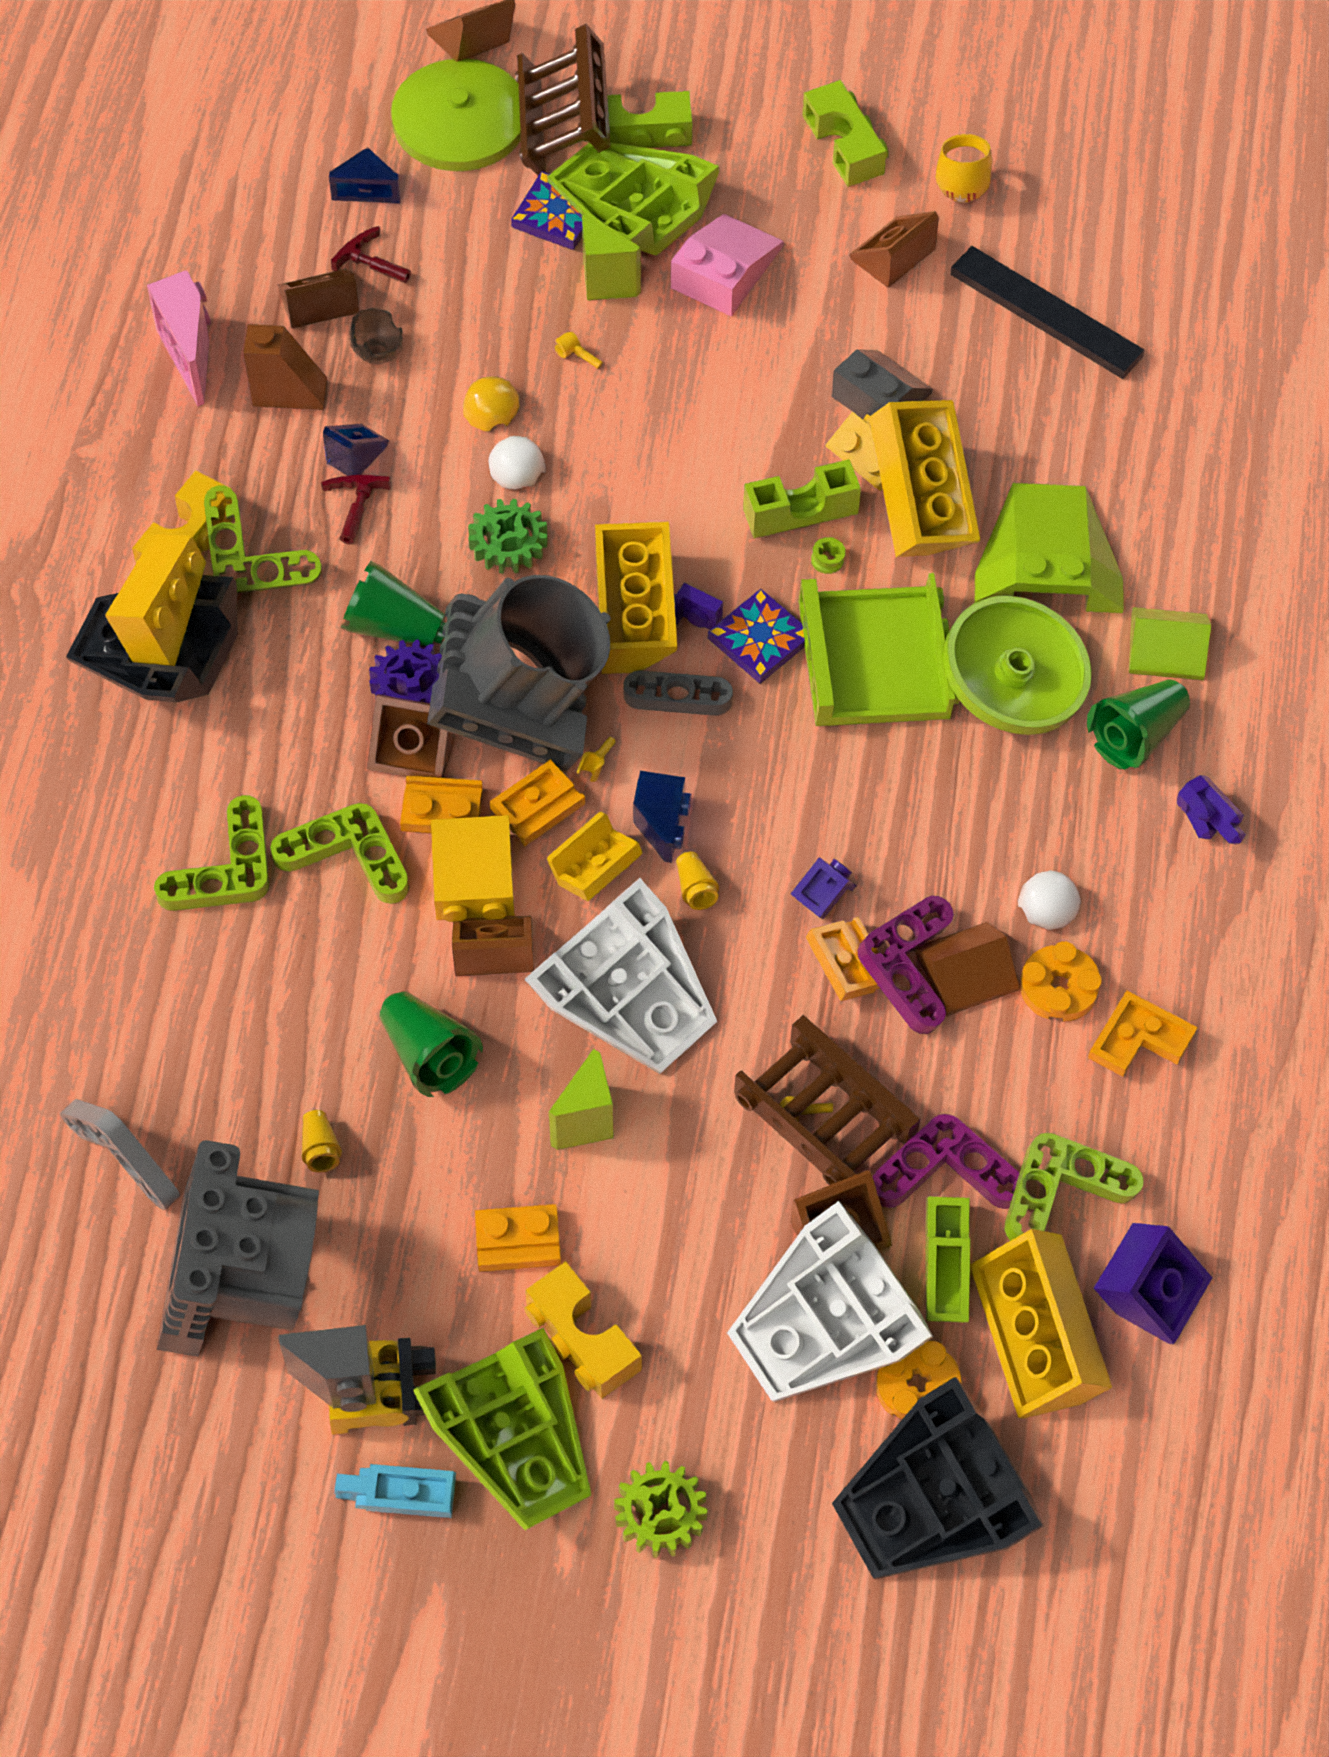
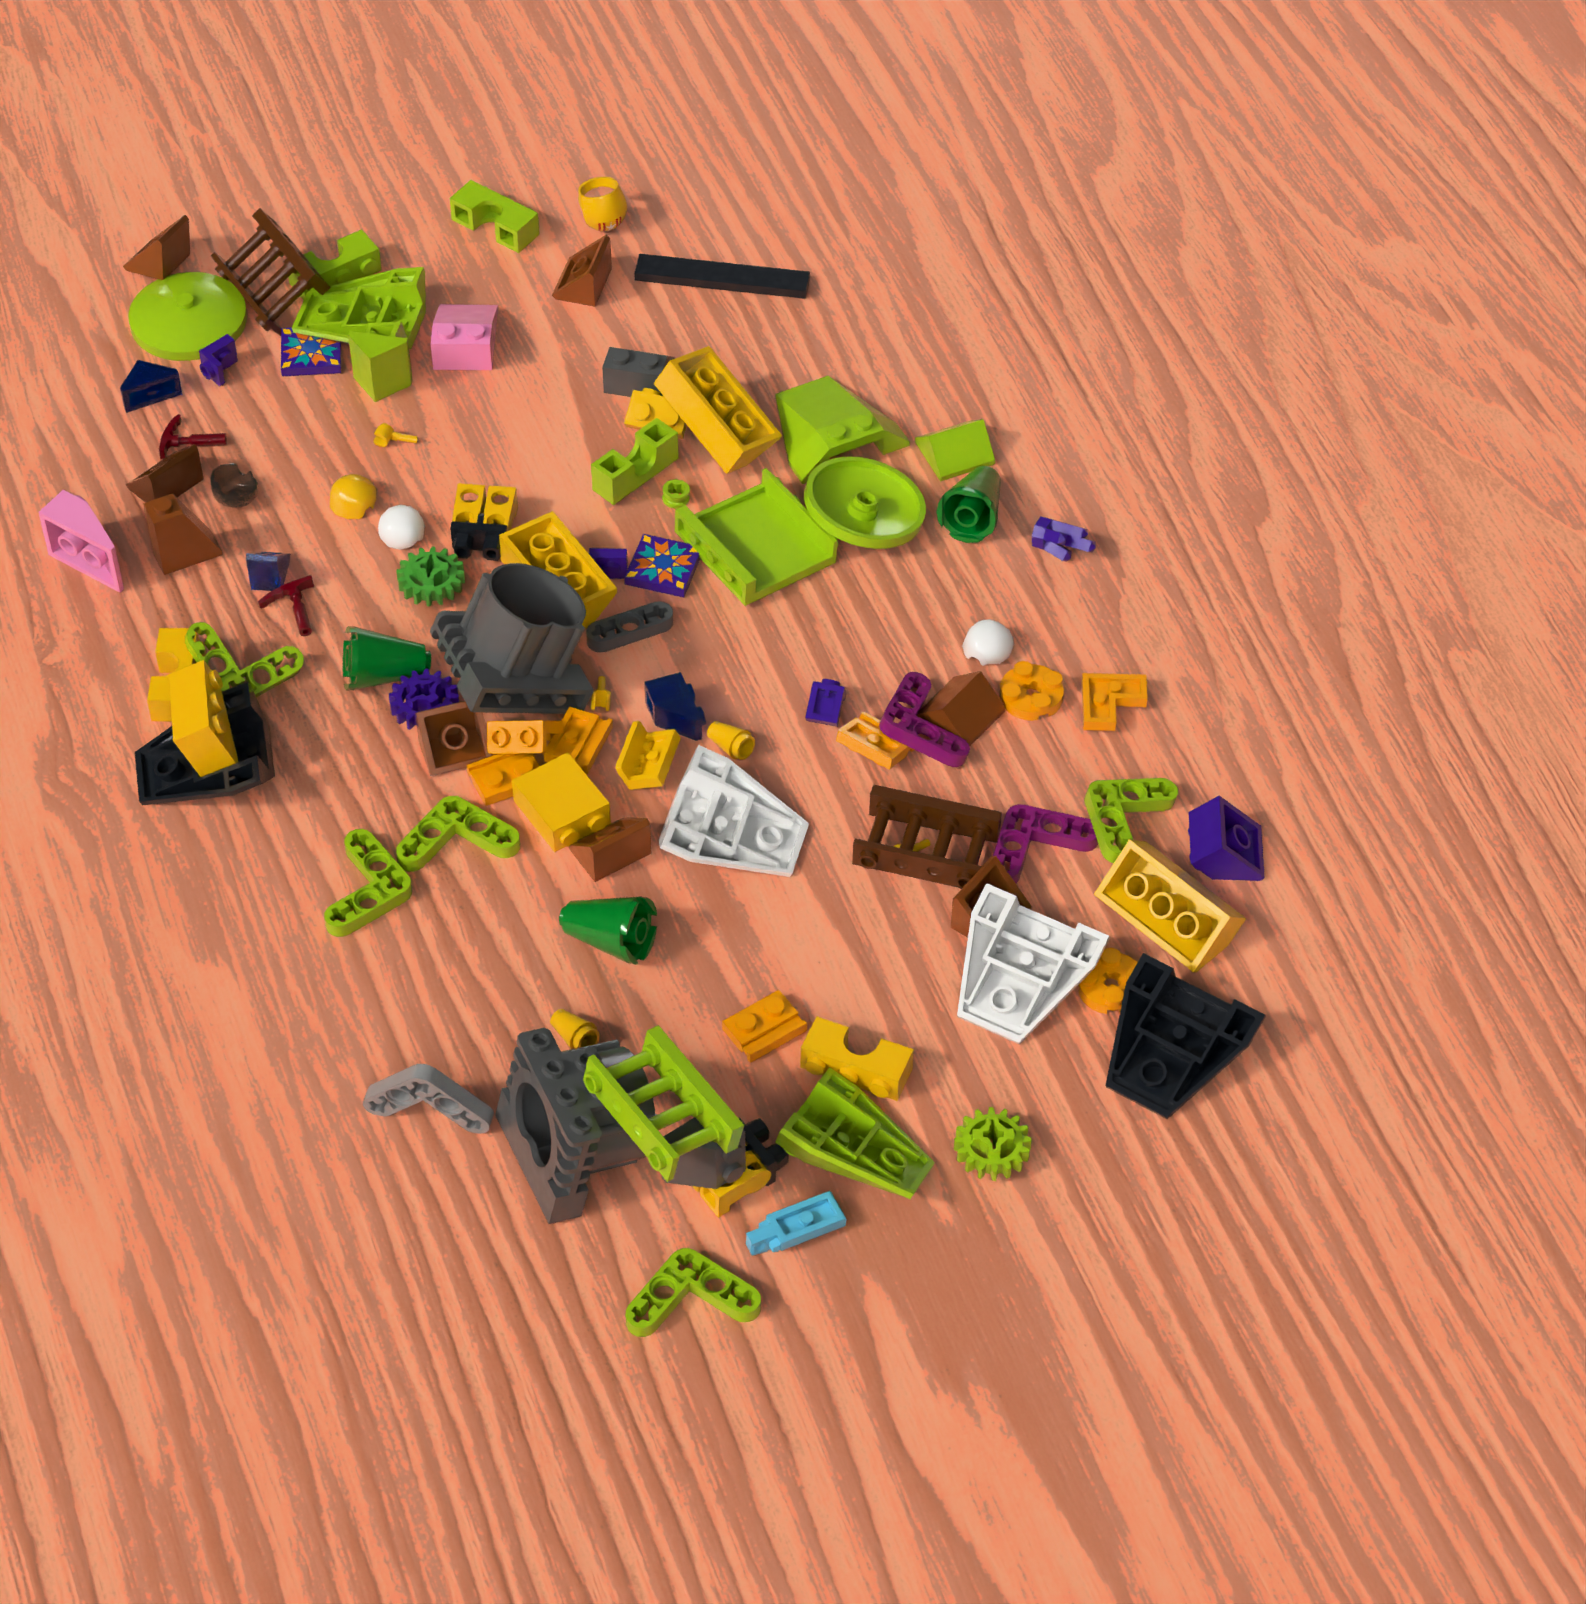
camera: 30 degrees left, 10 degrees down
(243, 1492) = (682, 1283): none -> lime beam
(330, 1320) = (677, 1076): none -> lime fence
(453, 178) = (218, 357): none -> dark purple bracket
(477, 770) = (520, 736): none -> light orange bracket
(584, 1108) = (764, 912): lime slope -> none
(601, 492) = (480, 522): none -> hips
(947, 1259) = (1076, 891): lime slope -> none

